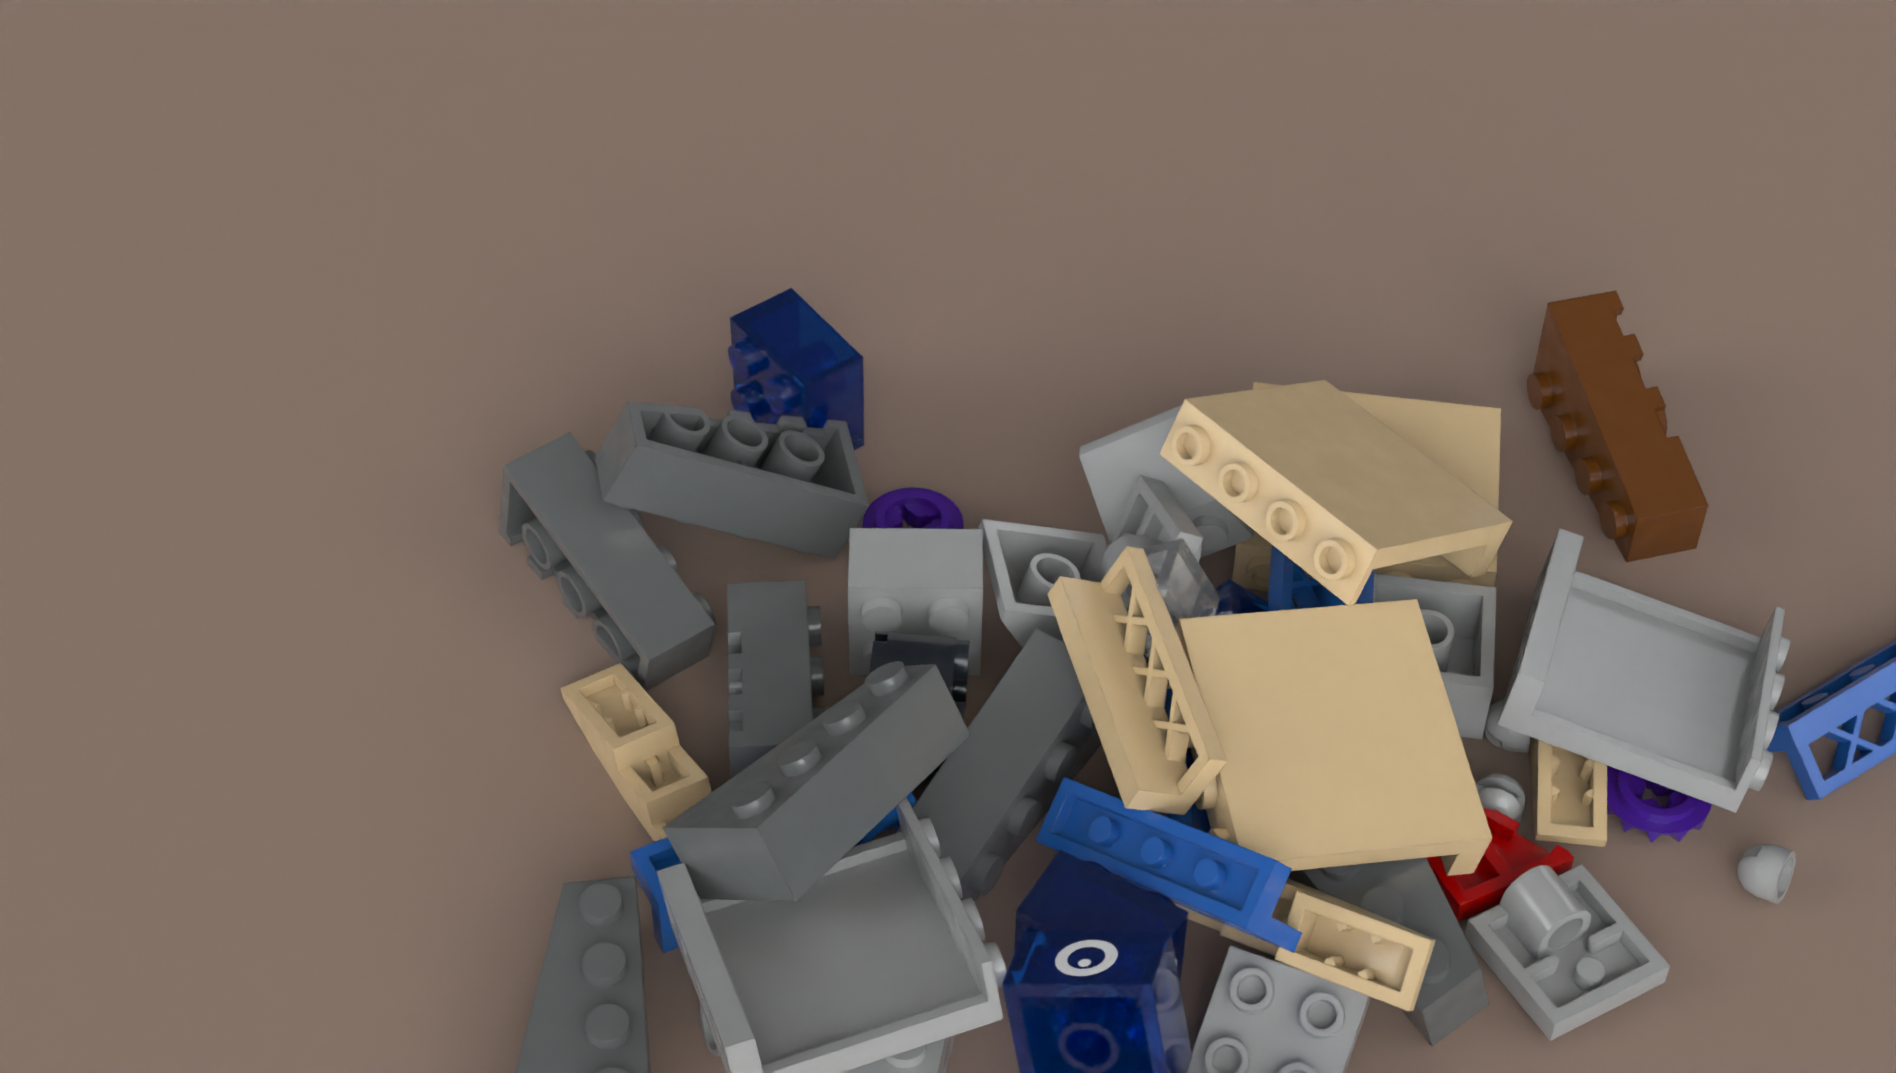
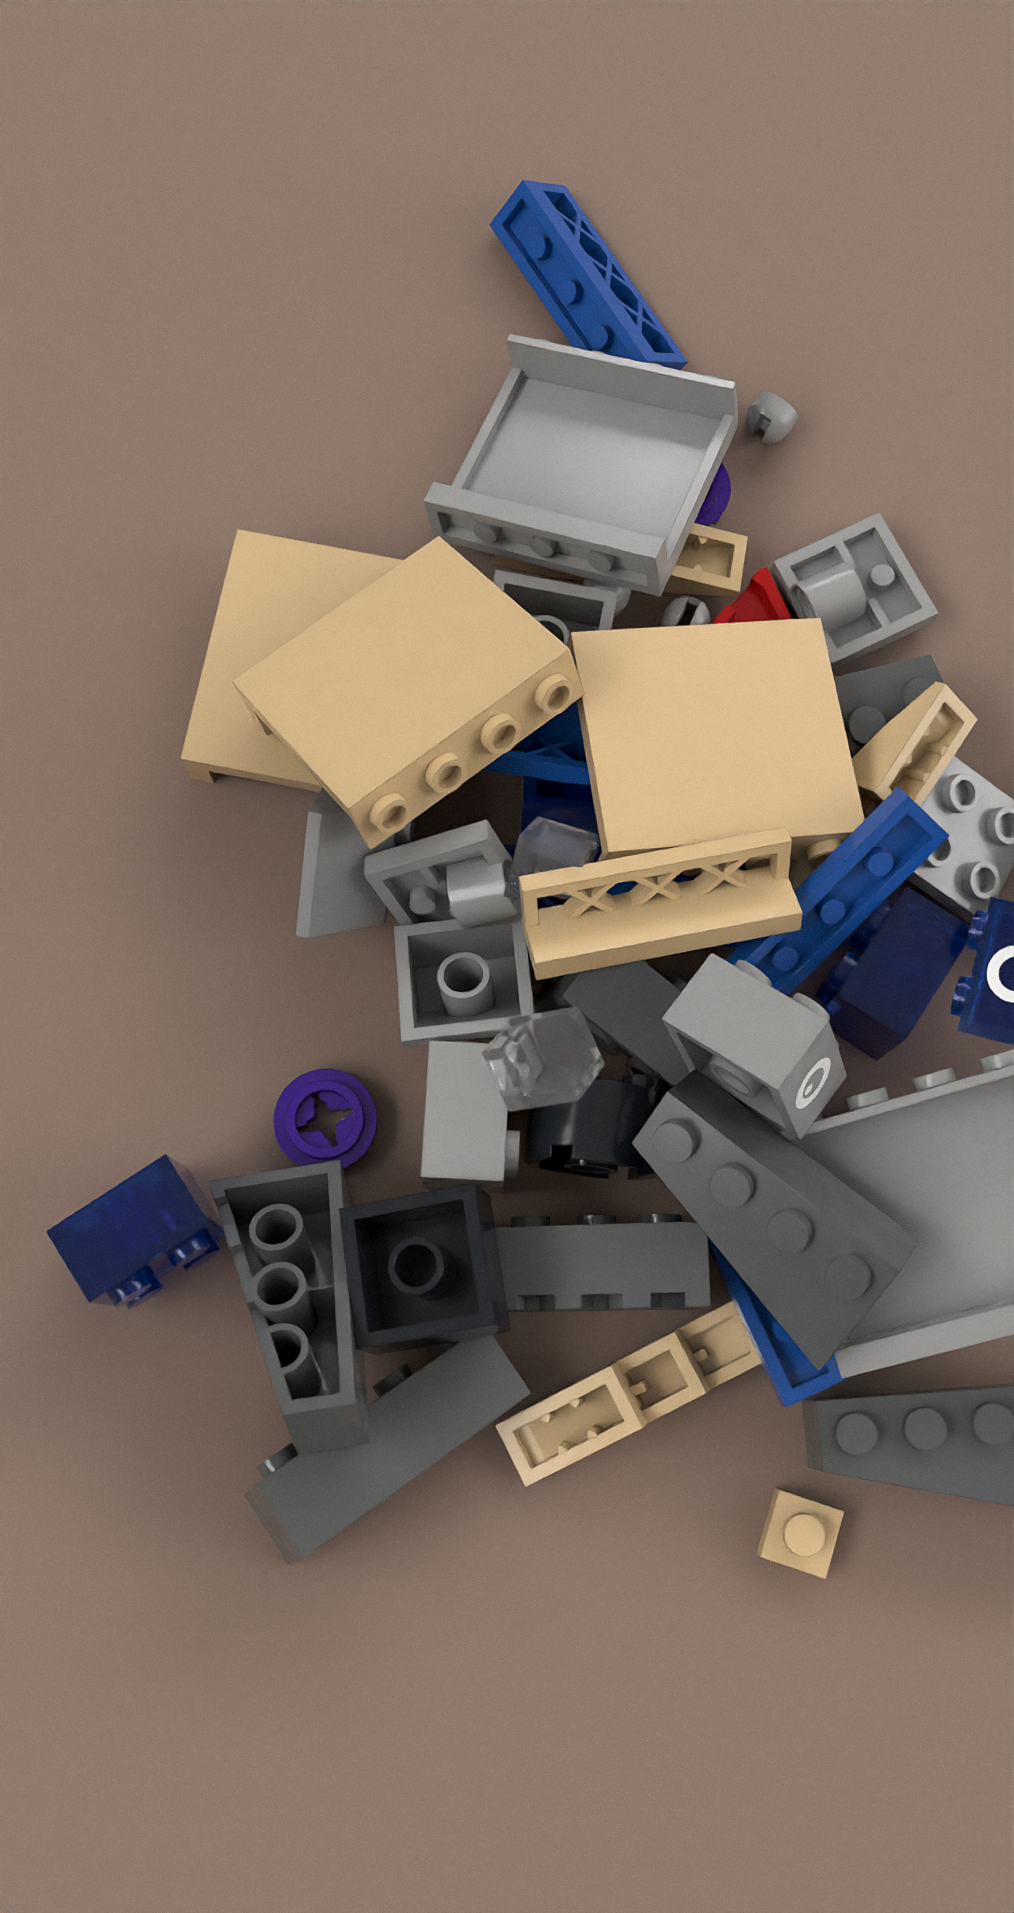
camera: 90 degrees left, 30 degrees up
(503, 916) = (800, 1533): none -> tan plate
(762, 542) = (423, 1270): none -> black brick
(966, 595) = (543, 1059): none -> clear panel
(988, 744) = (757, 1043): none -> light grey brick
(1615, 429) = (261, 434): reddish brown wedge -> none

